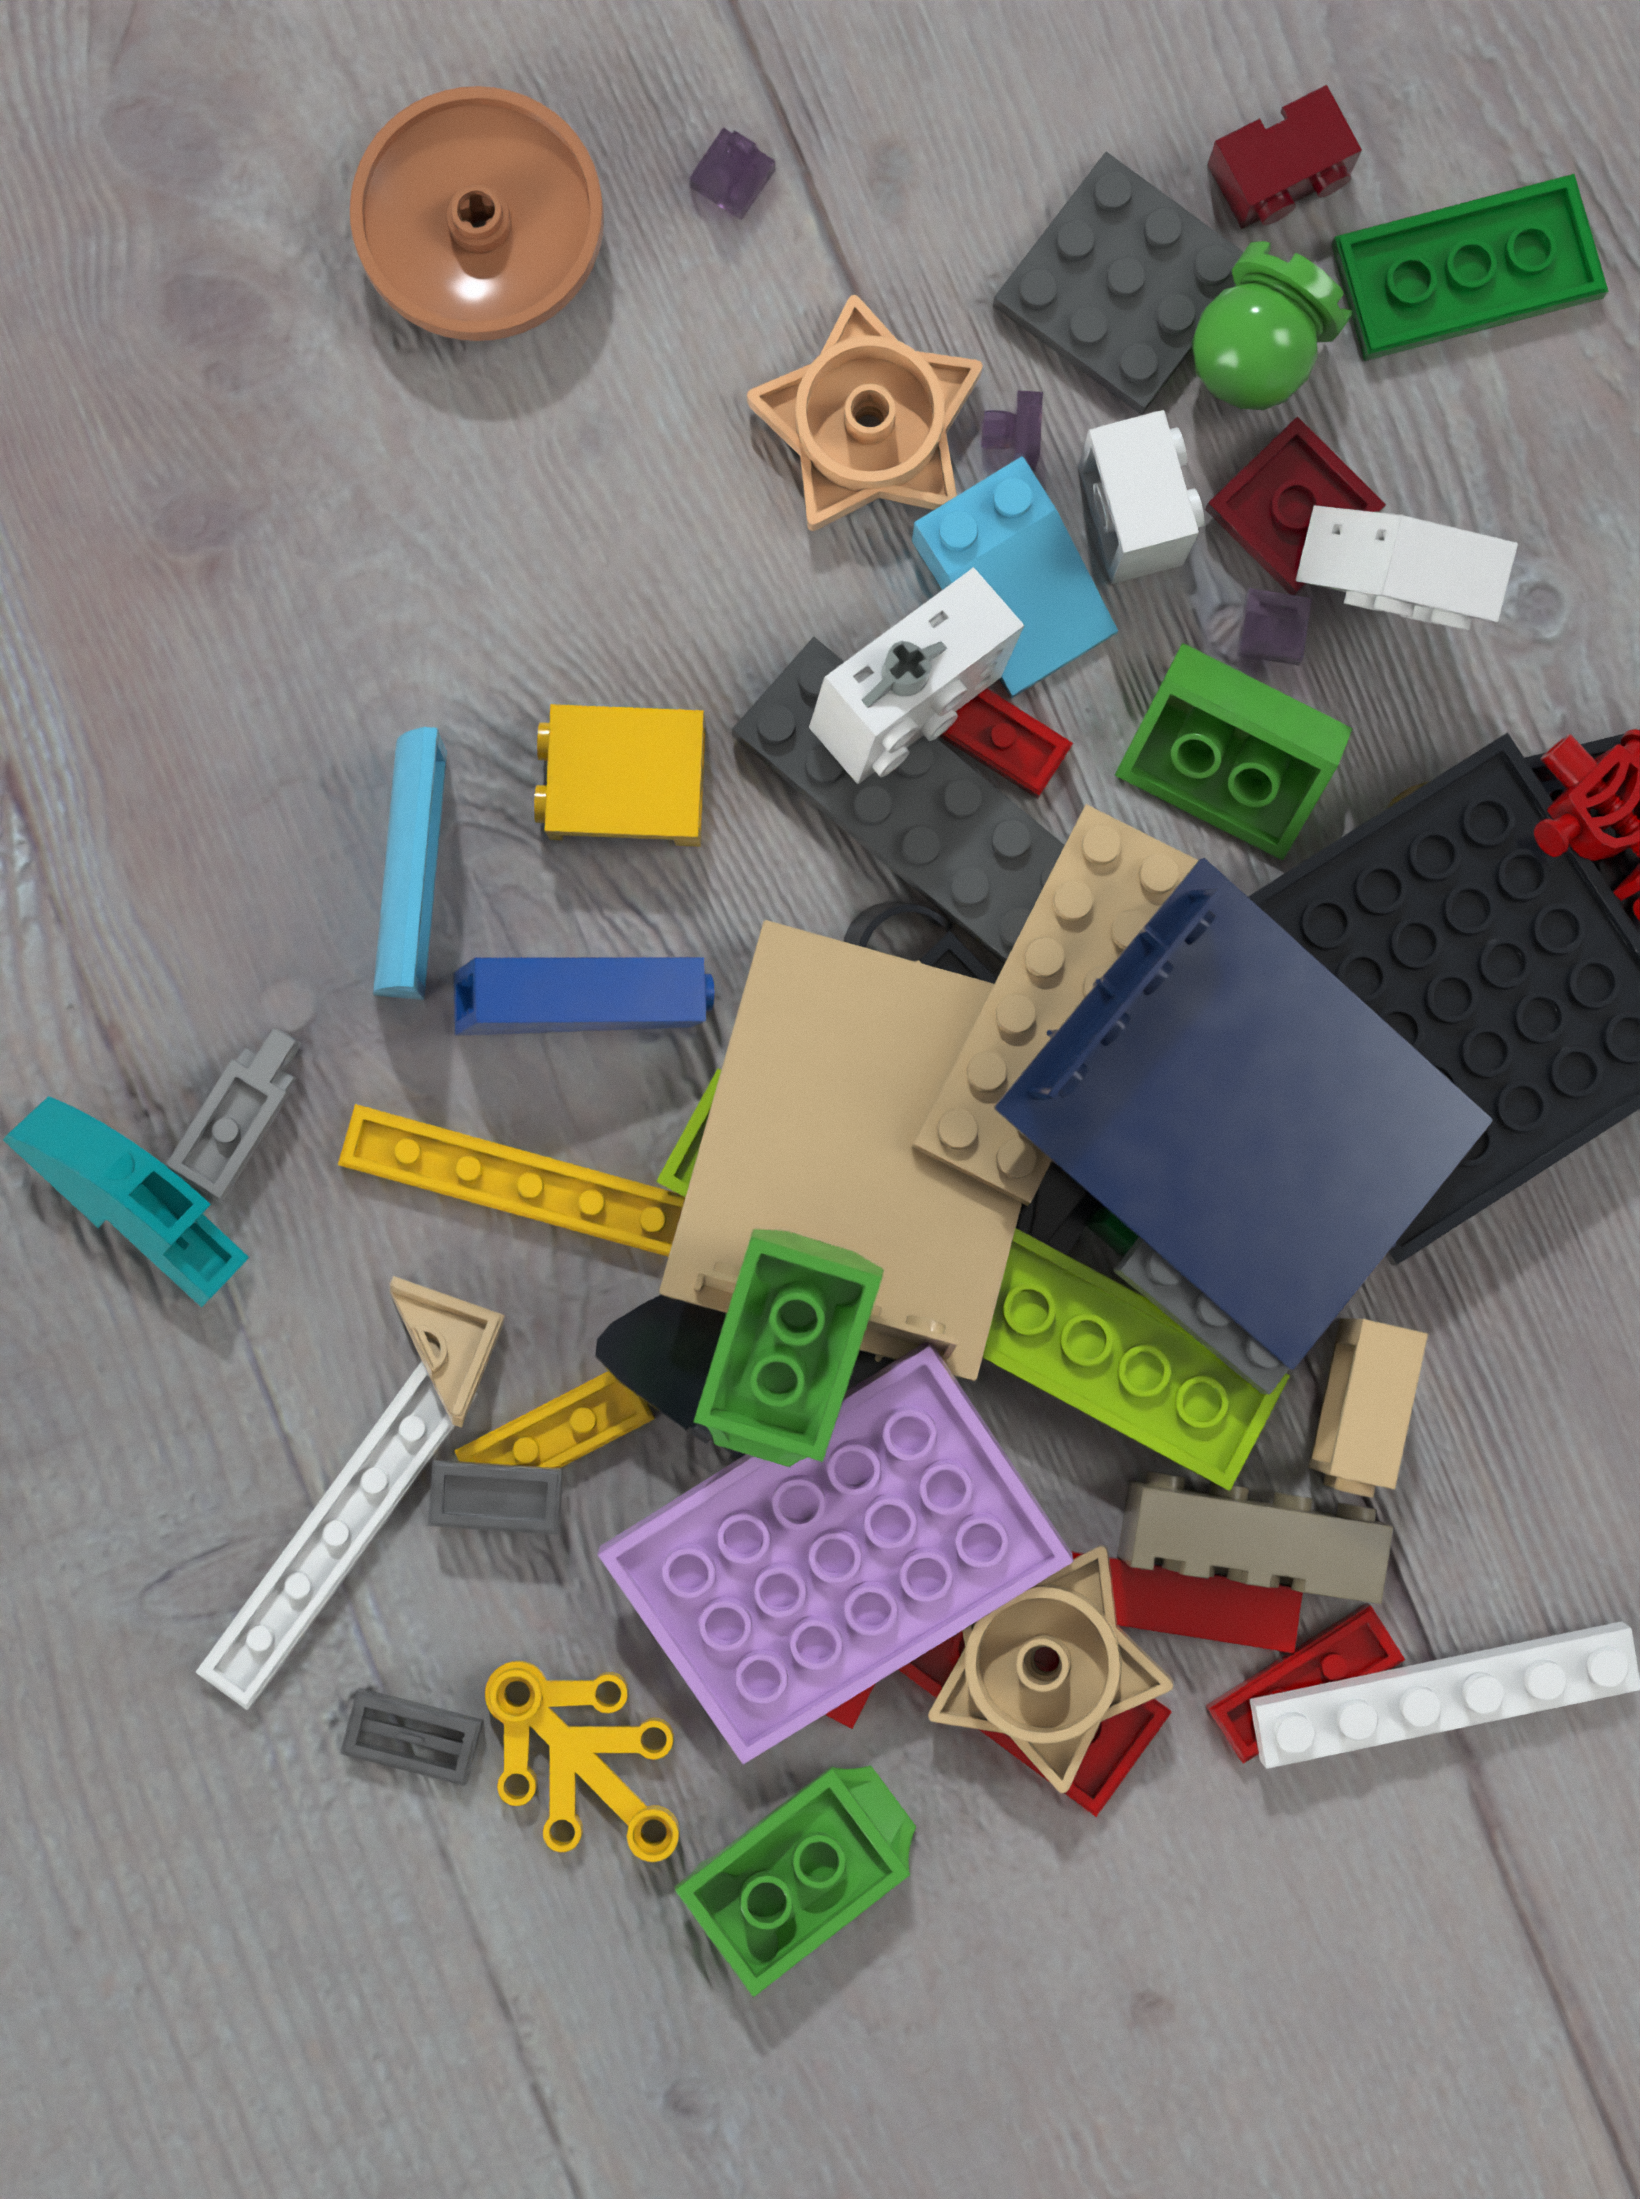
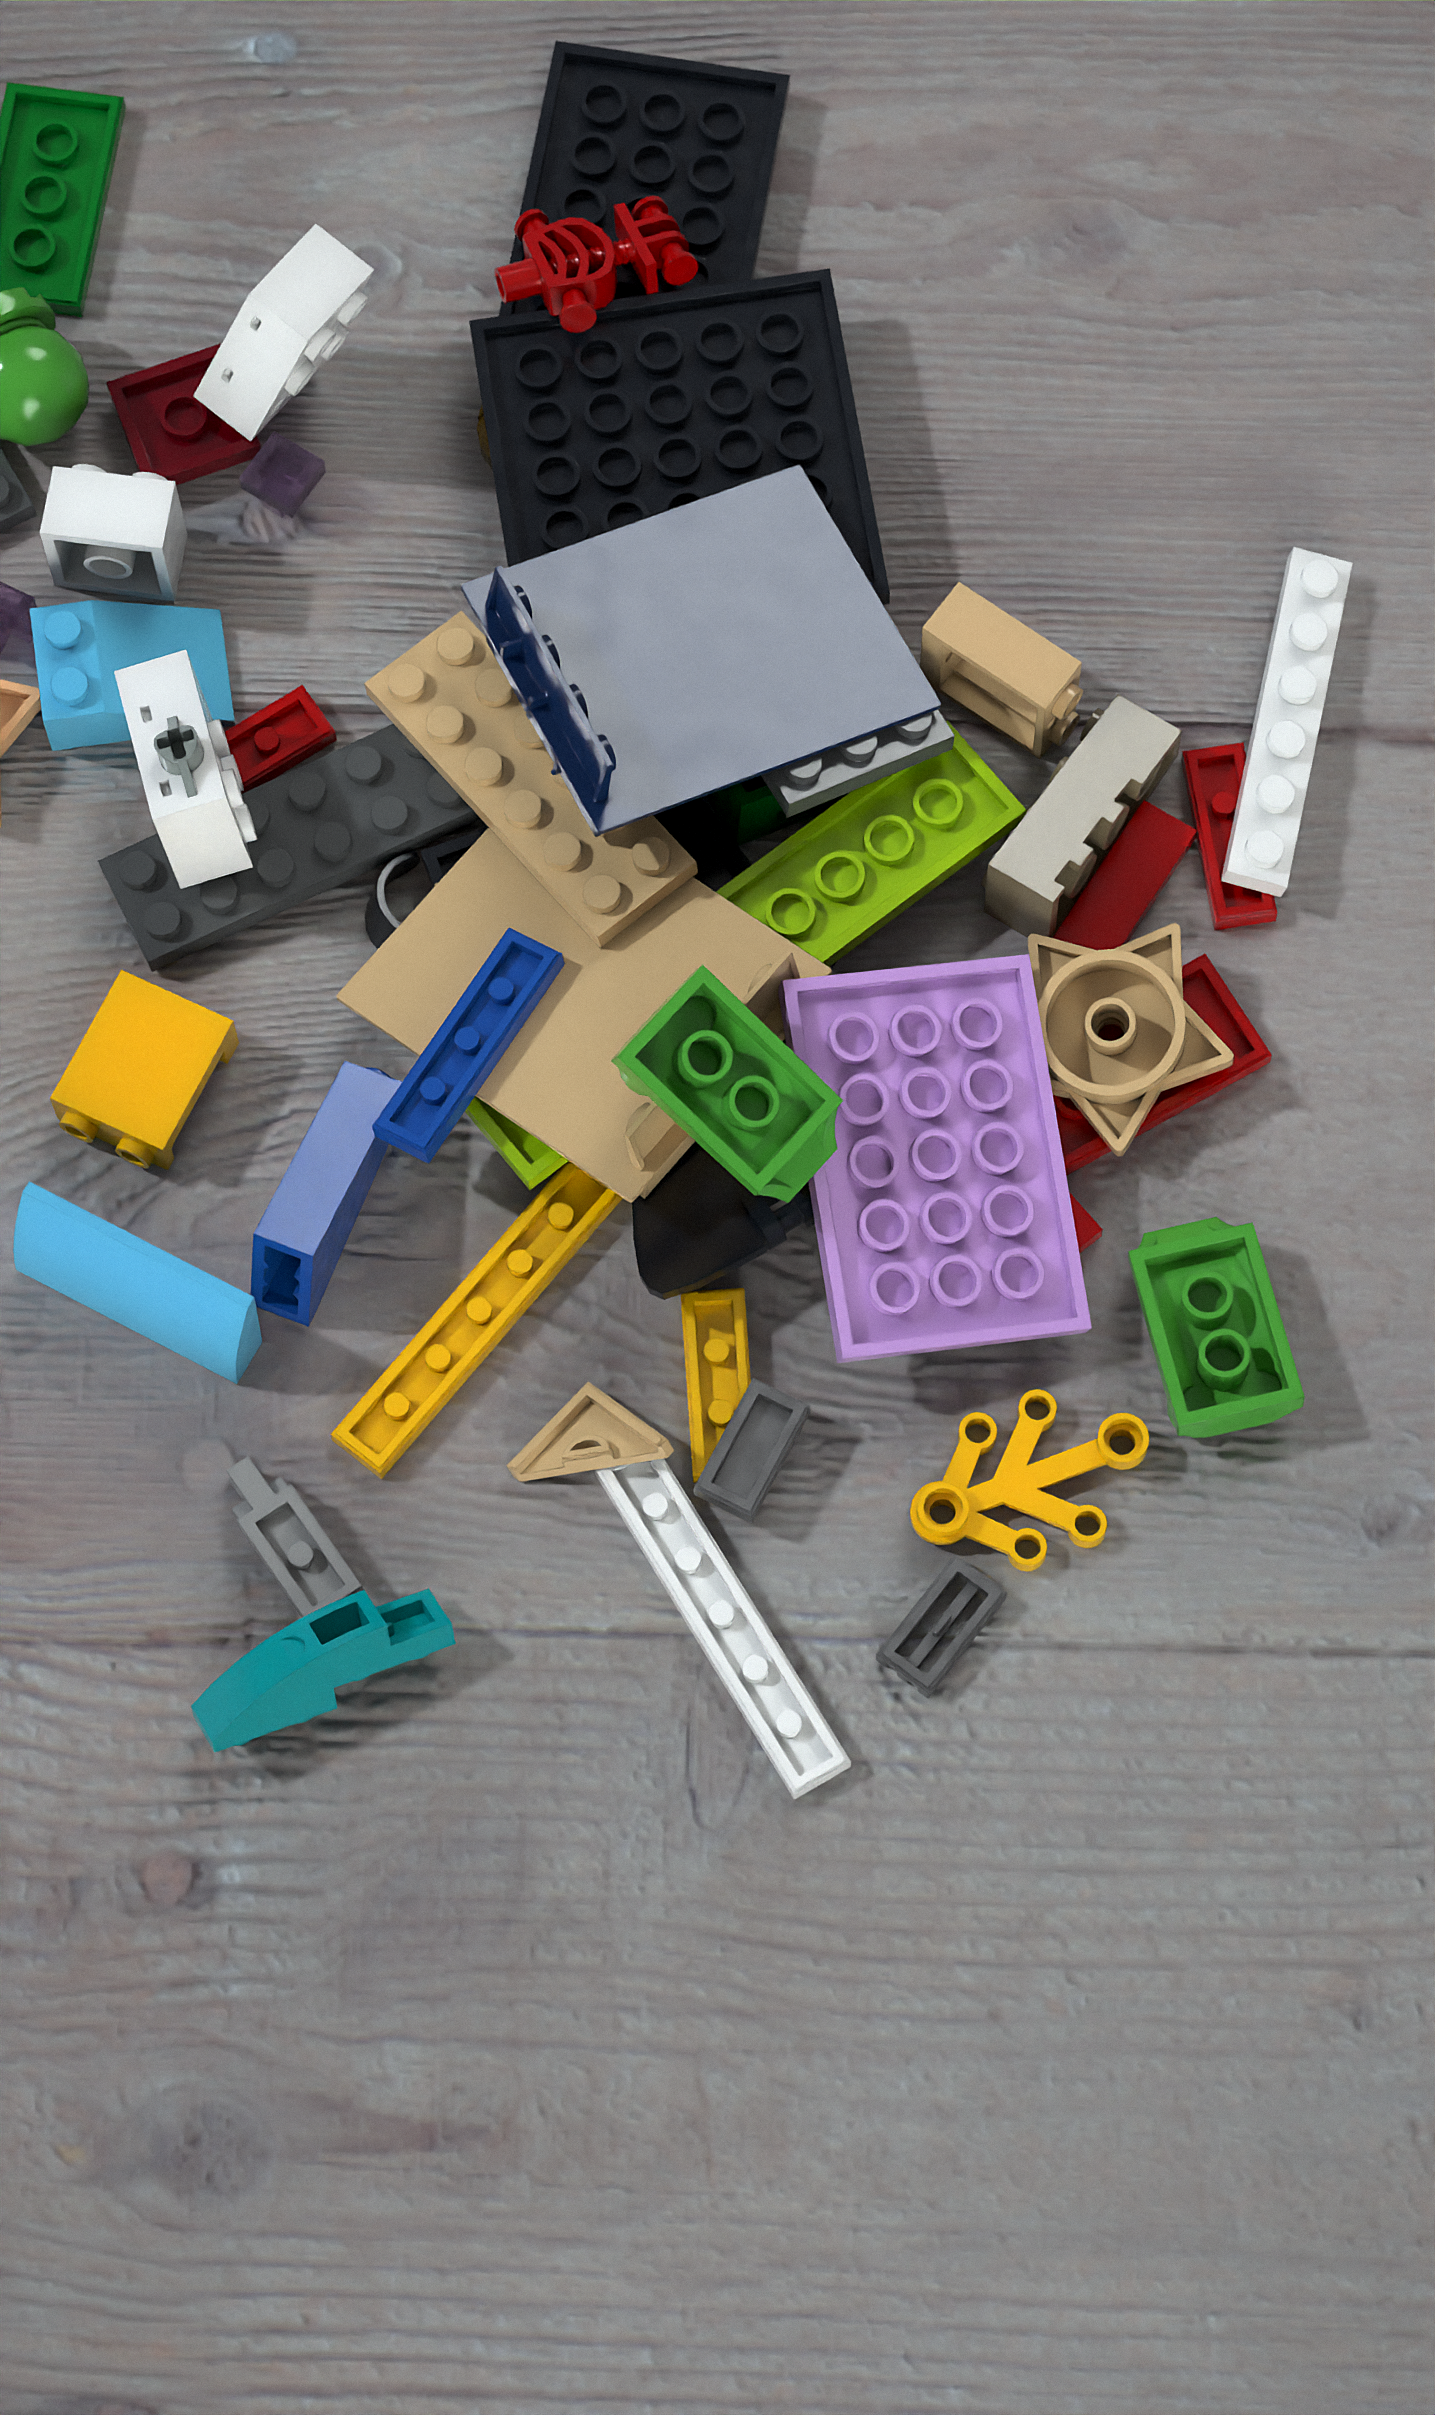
camera: 65 degrees left, 15 degrees down
(758, 1069) = (468, 1045): none -> blue tile
(1234, 751) = (376, 555): bright green slope -> none

